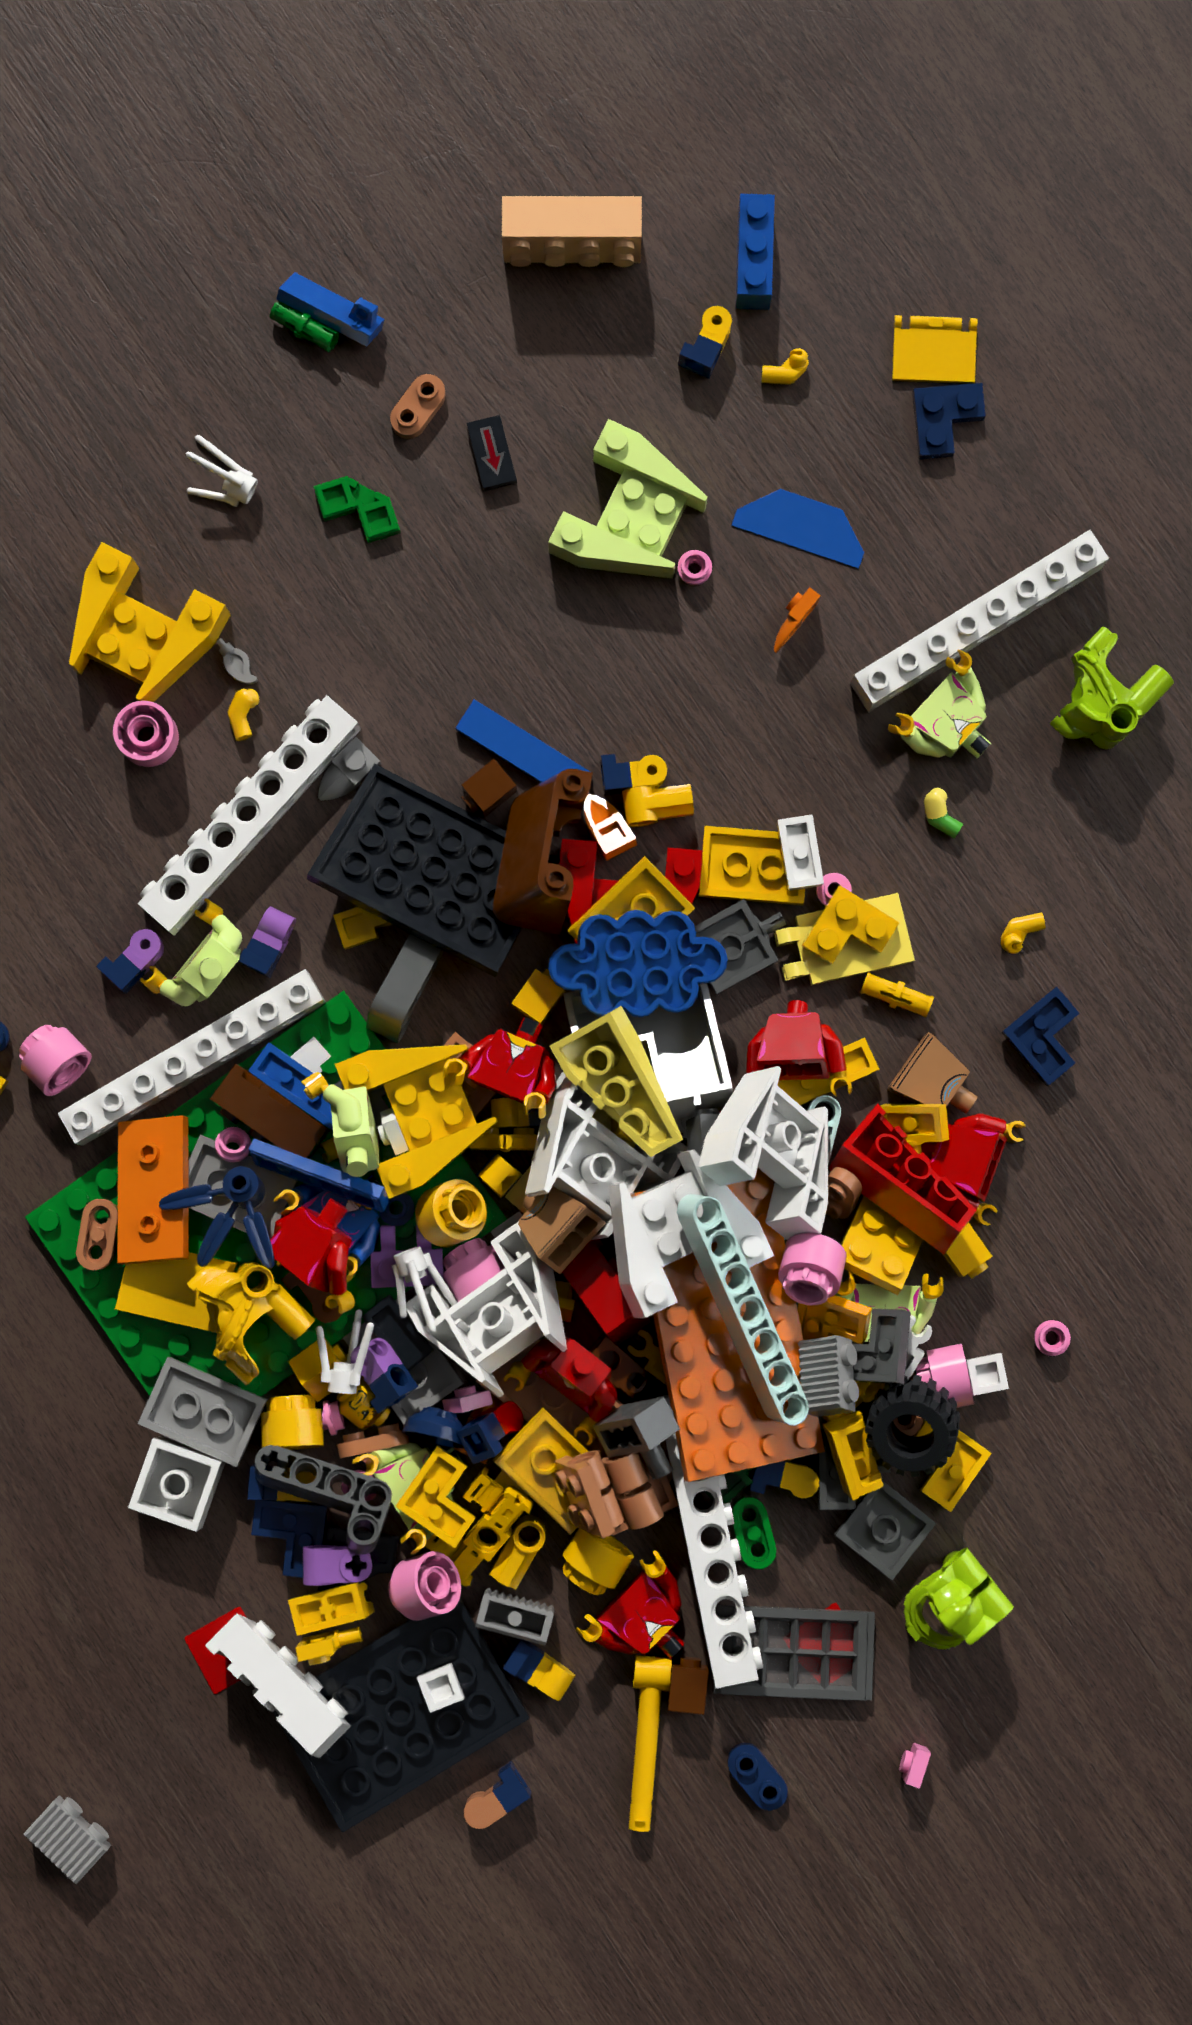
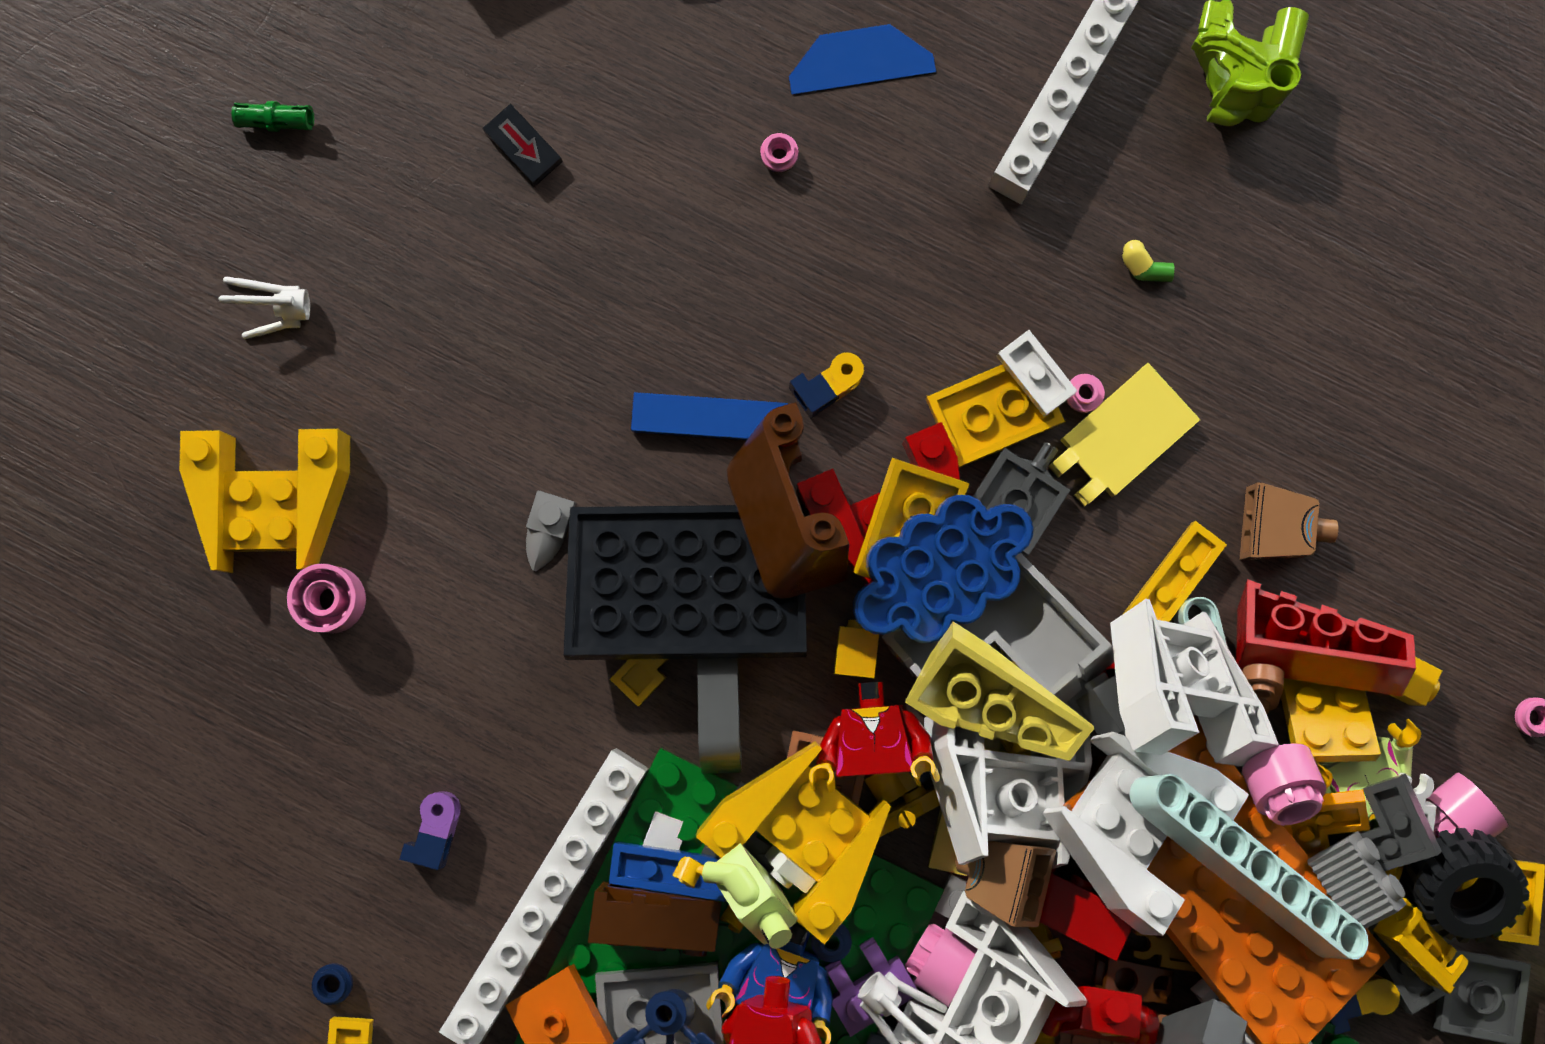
camera: 25 degrees left, 0 degrees up
(53, 1059) = (405, 975): bright pink piece -> none
(205, 966) = (510, 796): yellowish green torso -> none
(235, 1135) = (629, 958): bright pink plate -> none
(236, 663) = (381, 480): light grey piece -> none
(238, 710) = (407, 526): yellow arm -> none
(247, 834) = (423, 755): white brick -> none
(268, 942) = (559, 740): leg -> none
(318, 1175) = (739, 958): blue tile -> none
(348, 496) = (404, 260): green tile -> none
(352, 319) = (318, 85): blue hinge -> none
(419, 405) = (426, 135): nougat plate -> none
(451, 1213) = (891, 920): yellow piece -> none
(488, 789) = (695, 472): reddish brown brick -> none
(499, 1174) = (913, 850): yellow leg -> none
(607, 827) = (834, 449): plate -> none
(638, 514) = (697, 128): yellowish green wedge -> none
(648, 805) = (861, 405): yellow piece -> none
(799, 610) = (903, 139): orange plate -> none
(799, 1047) = (1138, 566): torso -> none
(847, 916) = (1112, 413): yellow plate -> none
(897, 994) = (1201, 462): yellow pin -> none
(919, 1121) = (1297, 575): yellow plate -> none
(948, 715) = (1103, 164): yellowish green torso -> none
(972, 1156) = (1360, 580): red torso -> none
(987, 1374) = (1498, 784): white plate -> none
(1017, 930) = (1280, 337): yellow arm -> none
(1034, 1033) = (1354, 428): dark blue plate -> none

